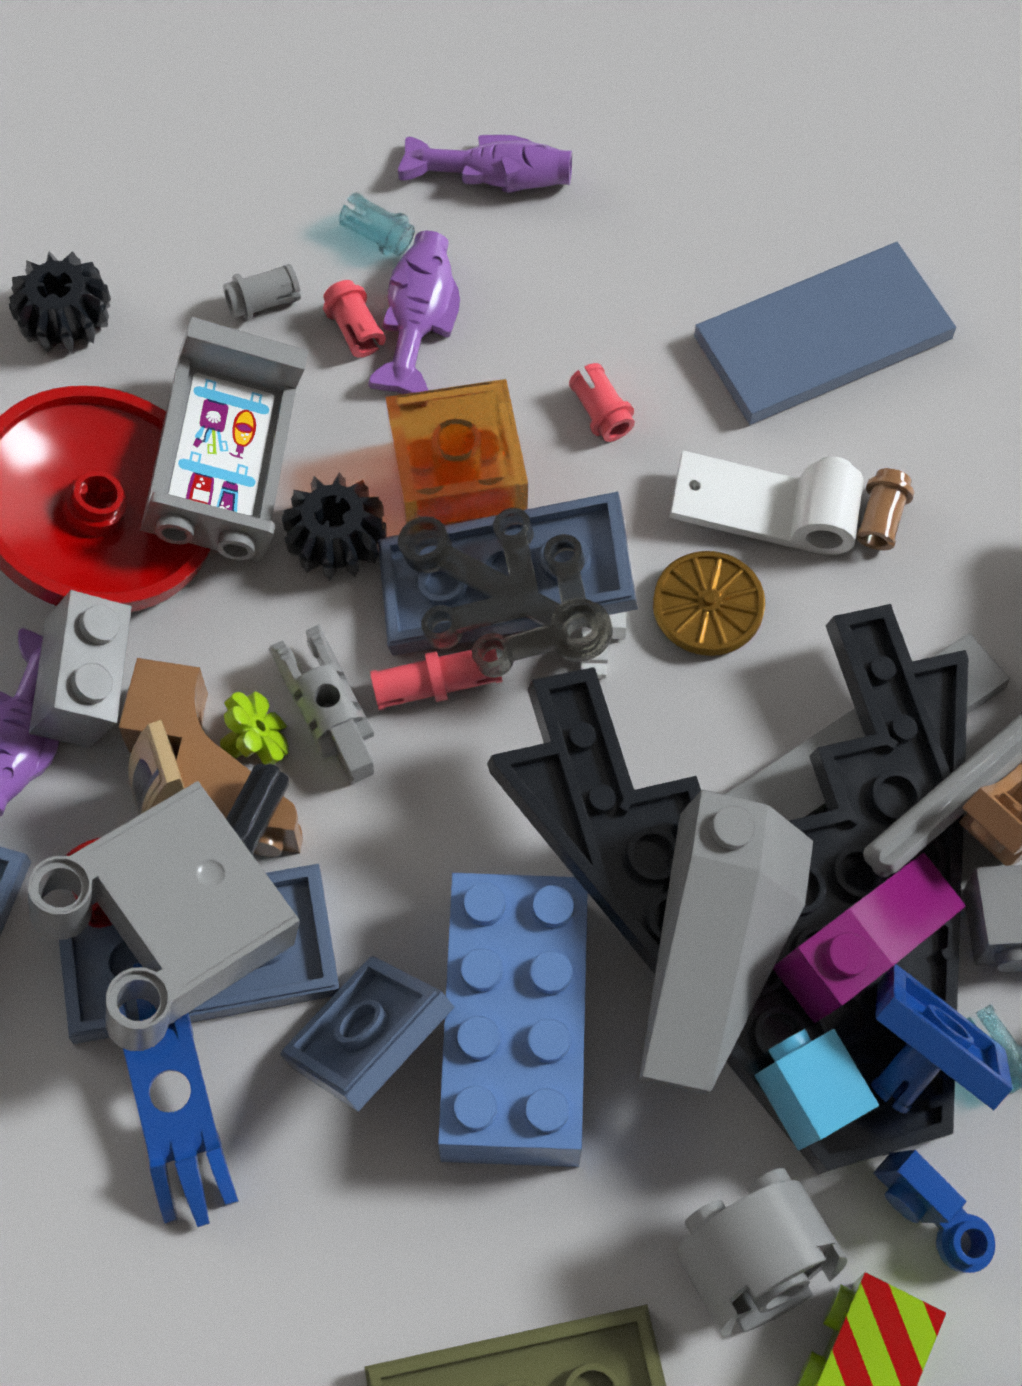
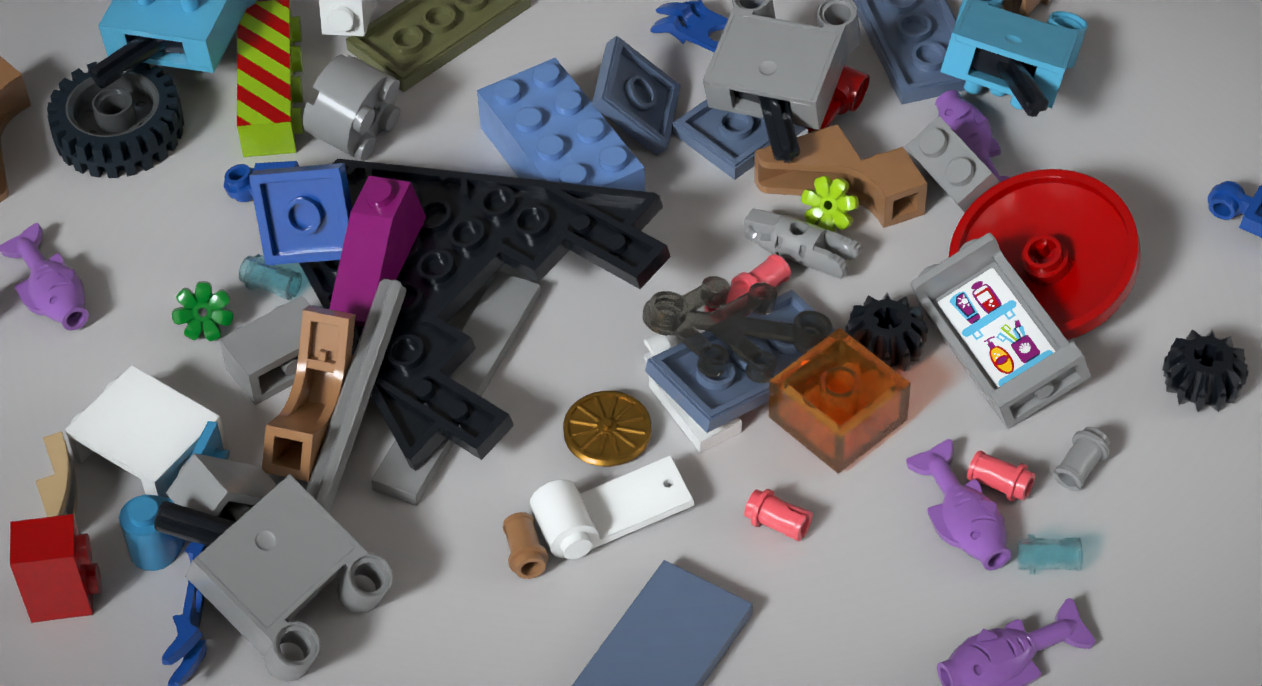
camera: 150 degrees right, 15 degrees down
(153, 768) = (853, 128): tan slope -> none
(725, 922) = (465, 206): light grey wedge -> none
(814, 1087) = (364, 156): medium azure brick -> none

